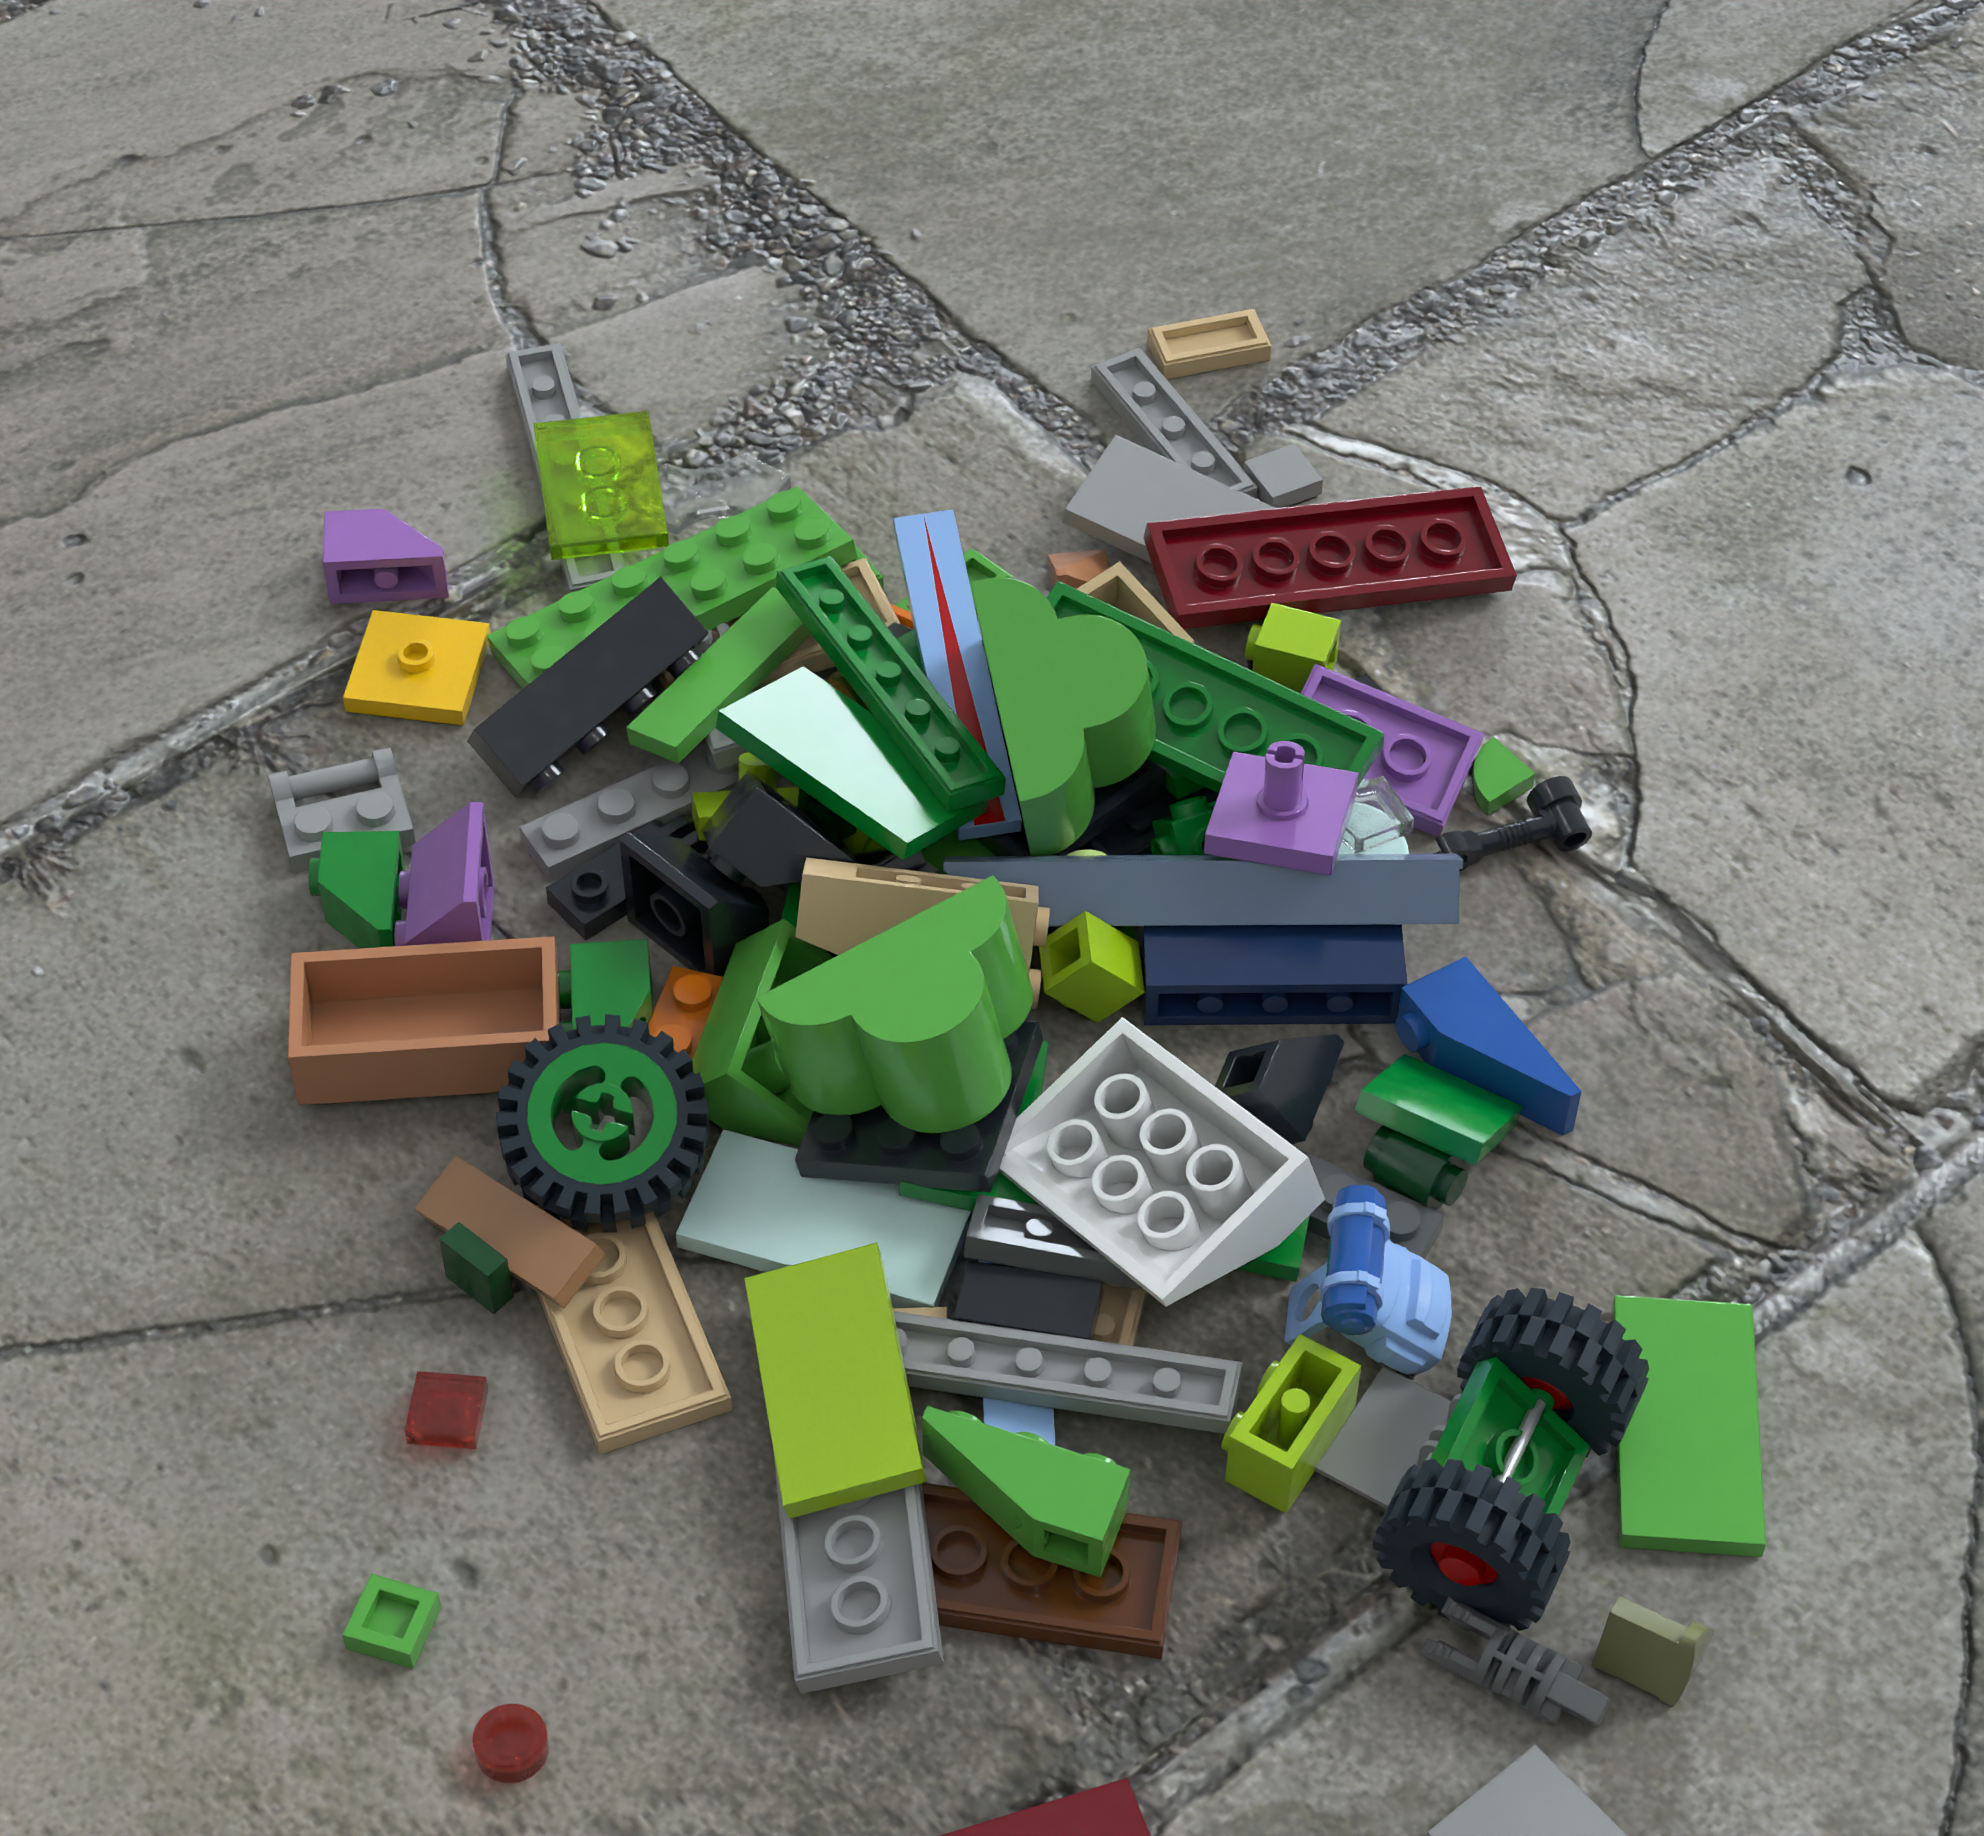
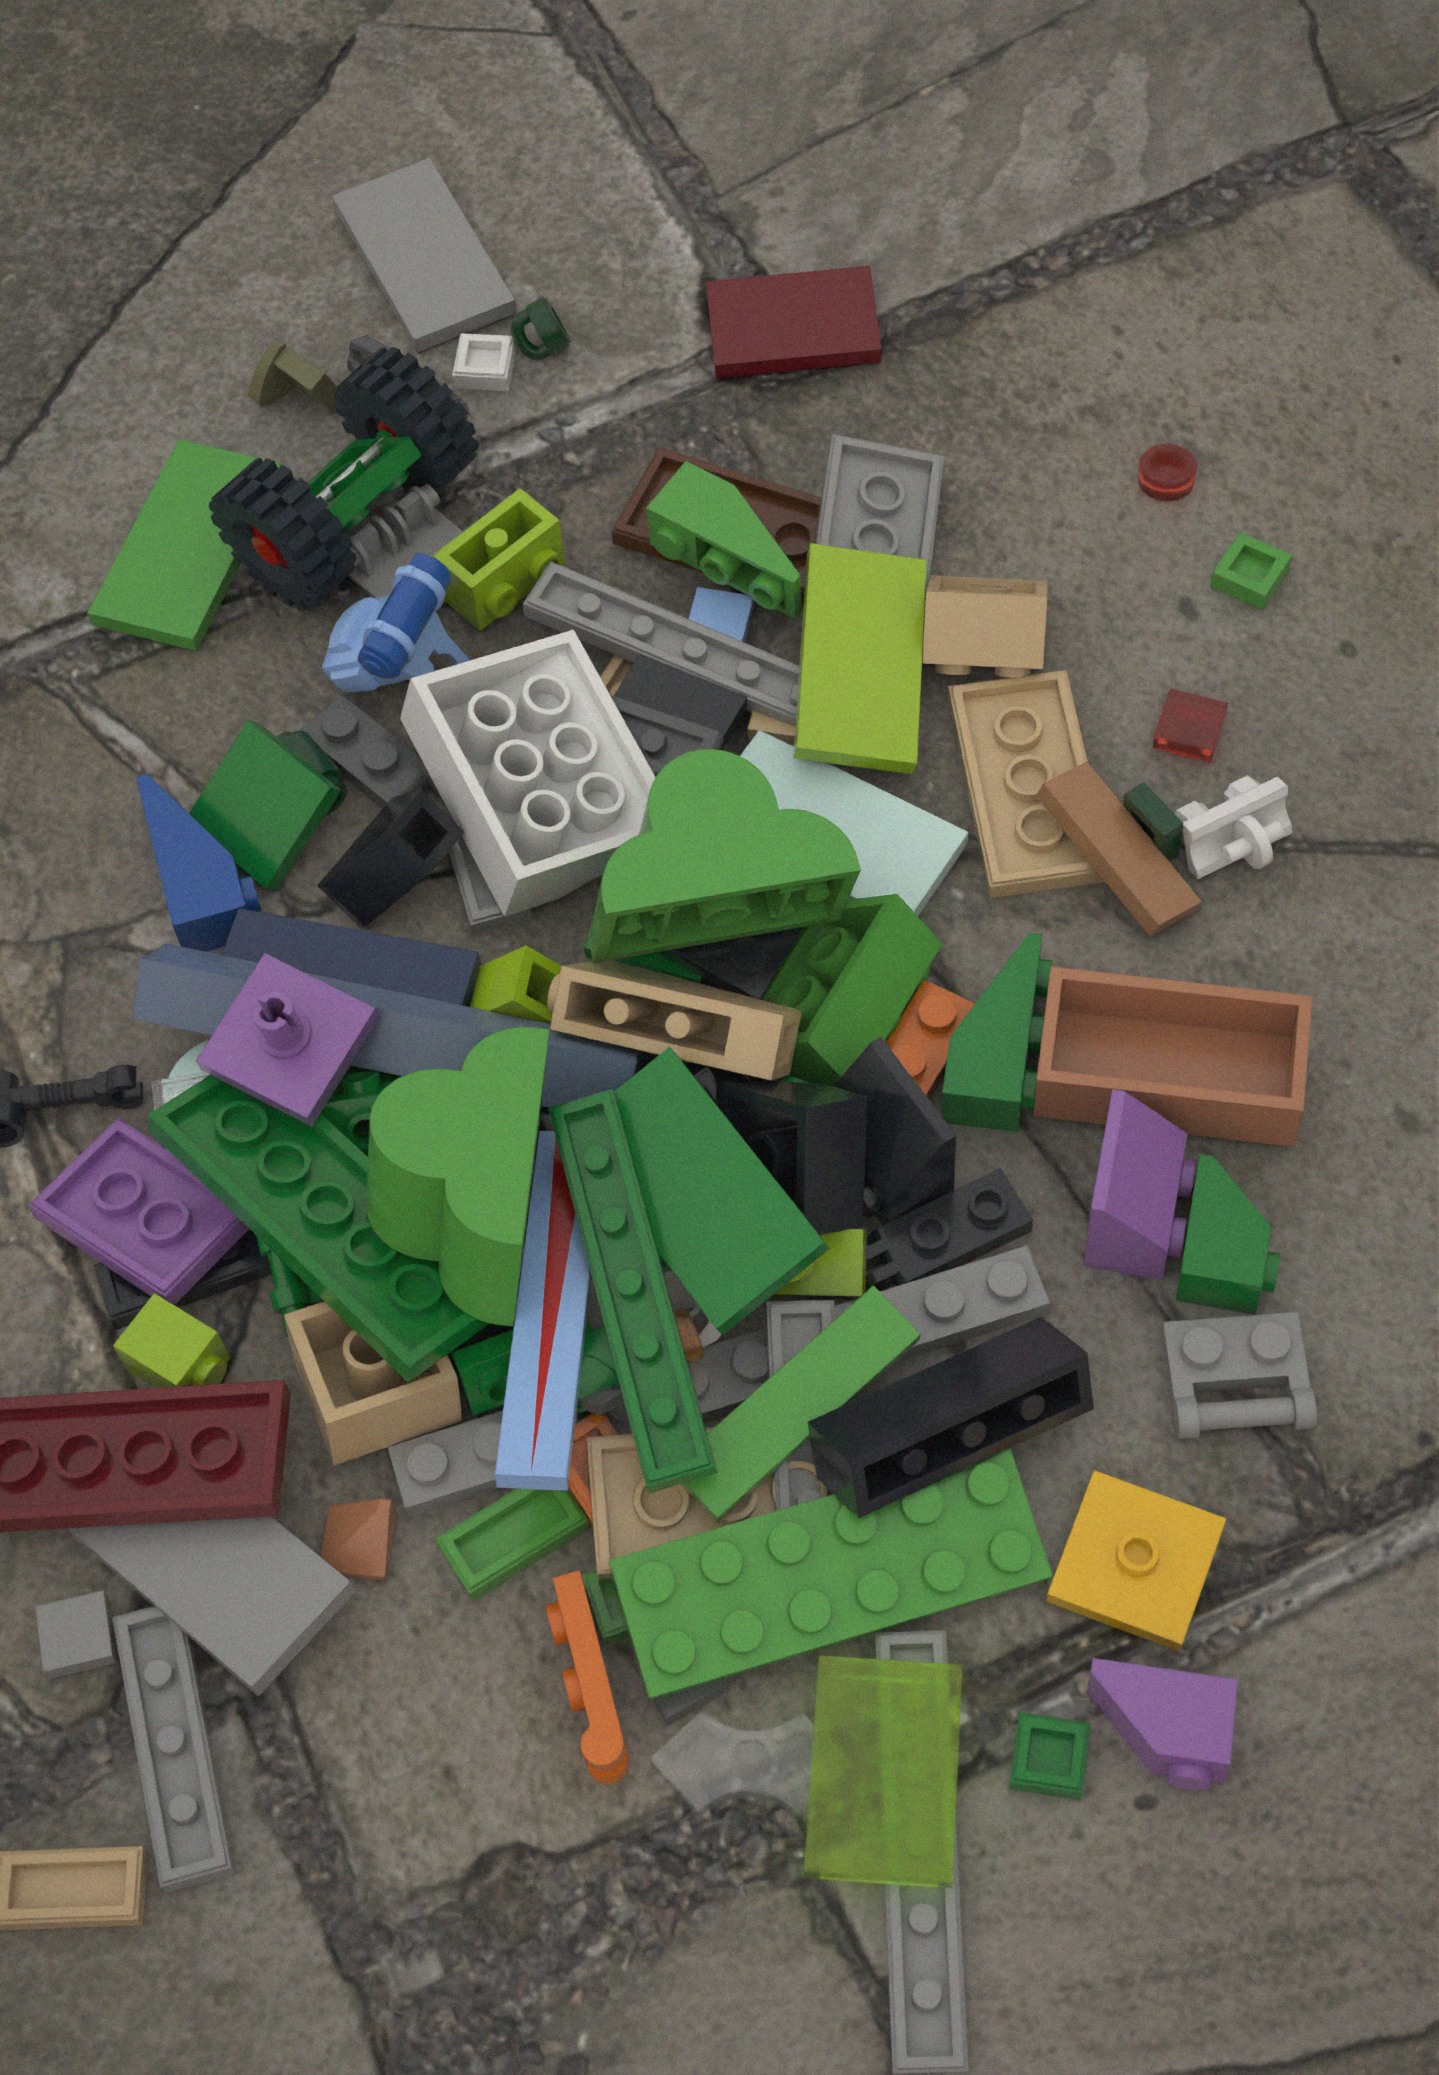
camera: 160 degrees left, 10 degrees up
(361, 1301) = (1236, 829): none -> white hips
(472, 537) = (1050, 1756): none -> green tile
(607, 1069) = (1016, 911): wheel -> none
(702, 1479) = (985, 625): none -> tan slope
(851, 503) = (588, 1681): none -> orange plate
(1368, 1786) = (547, 326): none -> dark green tile
(1434, 1746) = (484, 362): none -> white tile
(1499, 777) = (34, 1169): bright green tile -> none

